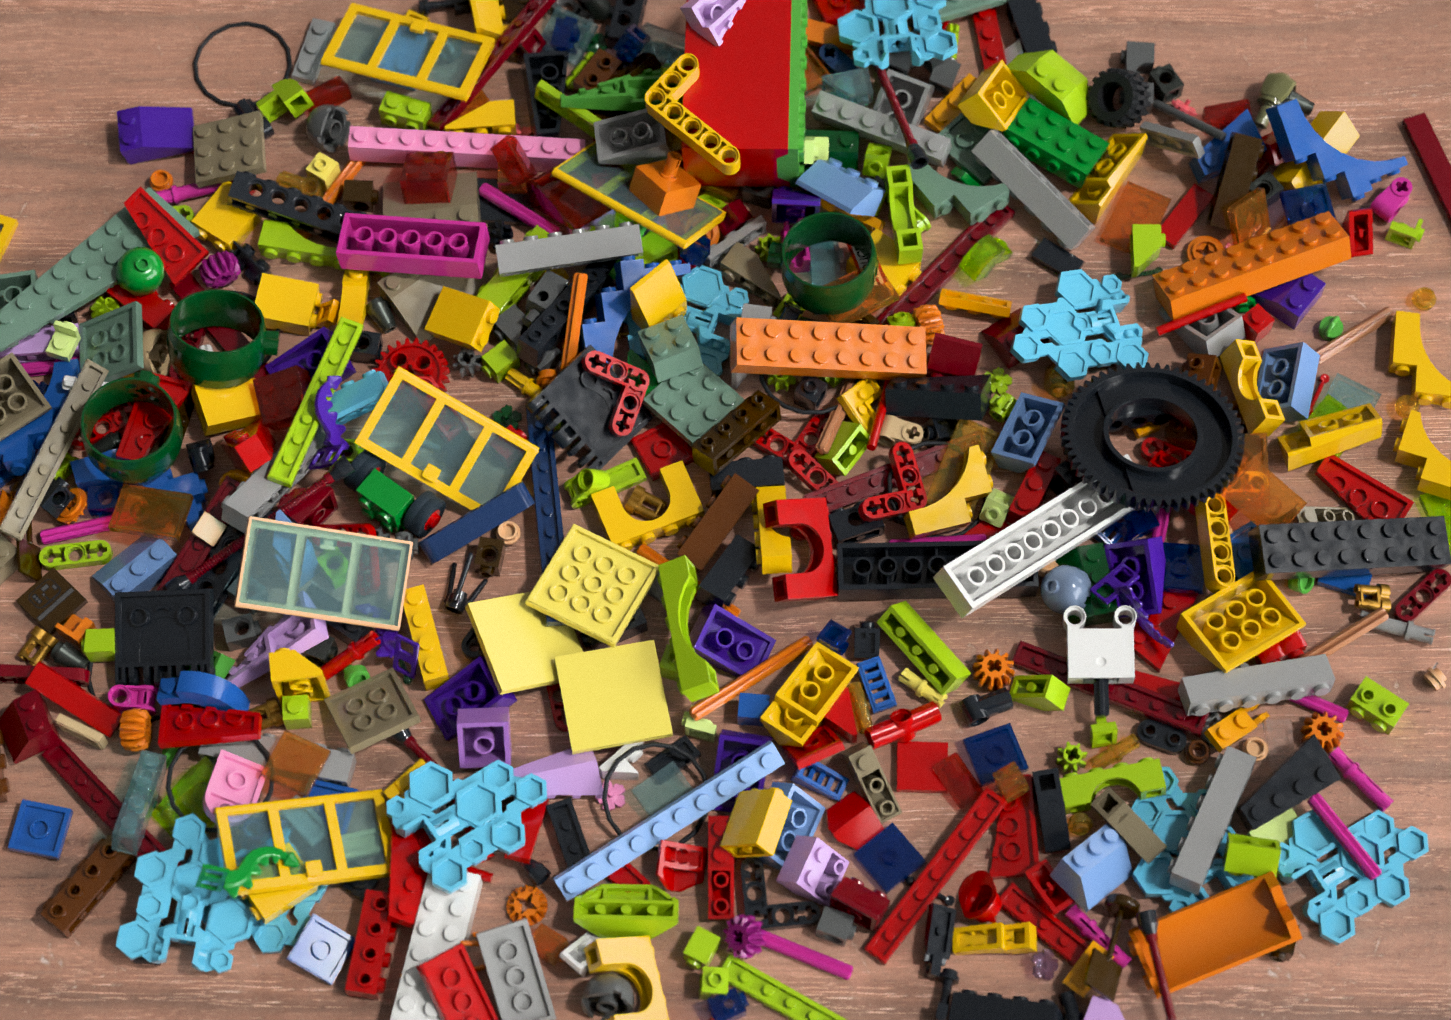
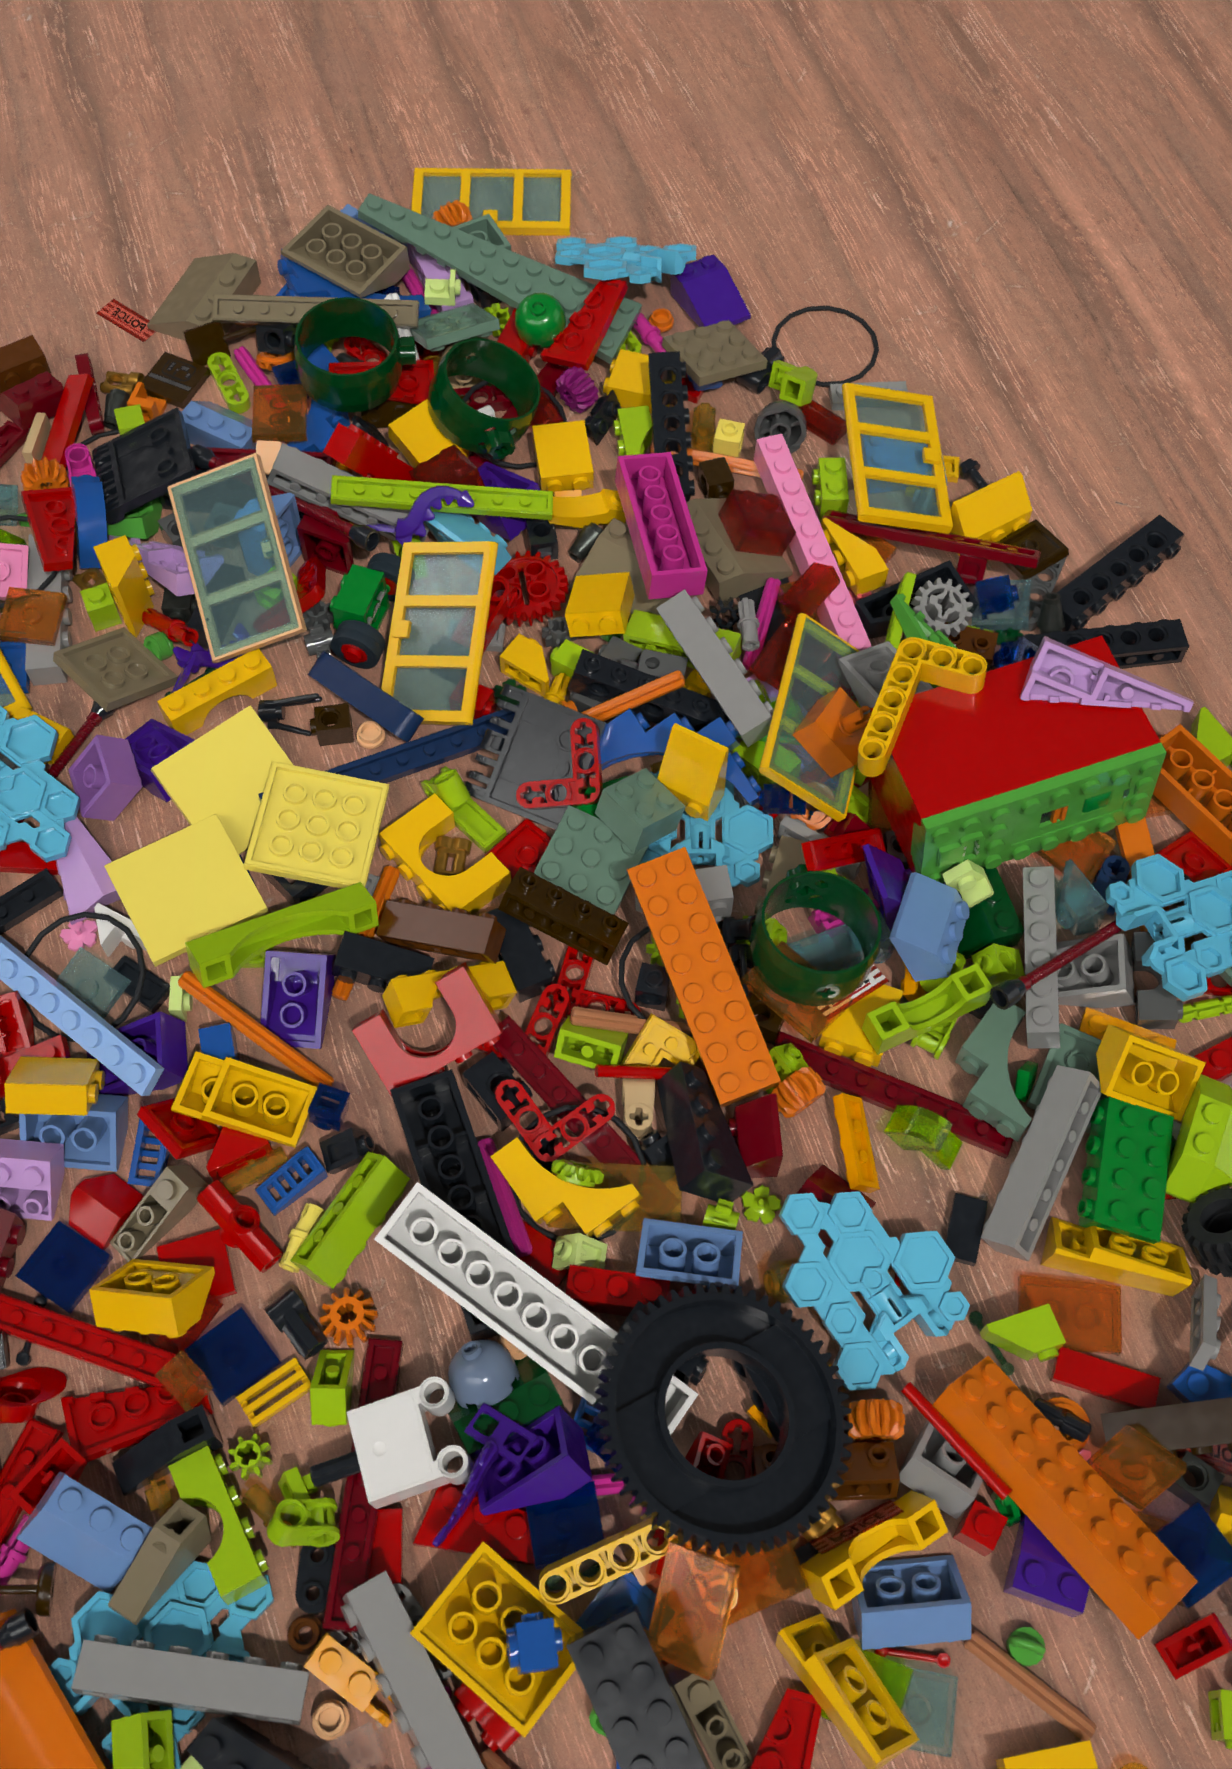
camera: 70 degrees right, 5 degrees down
(105, 192) = (624, 258): none -> medium azure piece
(489, 394) = (526, 664): none -> yellow slope
(522, 218) = (748, 624): none -> light grey axle
(570, 74) = (953, 606): none -> light grey gear
(759, 220) = (840, 849): none -> red tile
(941, 790) = (152, 1297): none -> yellow slope
(947, 481) = (577, 1173): none -> lime gear
(1023, 715) = (268, 1381): none -> yellow tile
(1131, 728) = (311, 1523): none -> lime piece
(1172, 354) = (876, 1420): none -> orange gear
(1207, 247) = (1067, 1423): none -> black piece
(1234, 390) = (856, 1527): none -> clear red sticker
(1256, 598) = (533, 1644): none -> blue brick

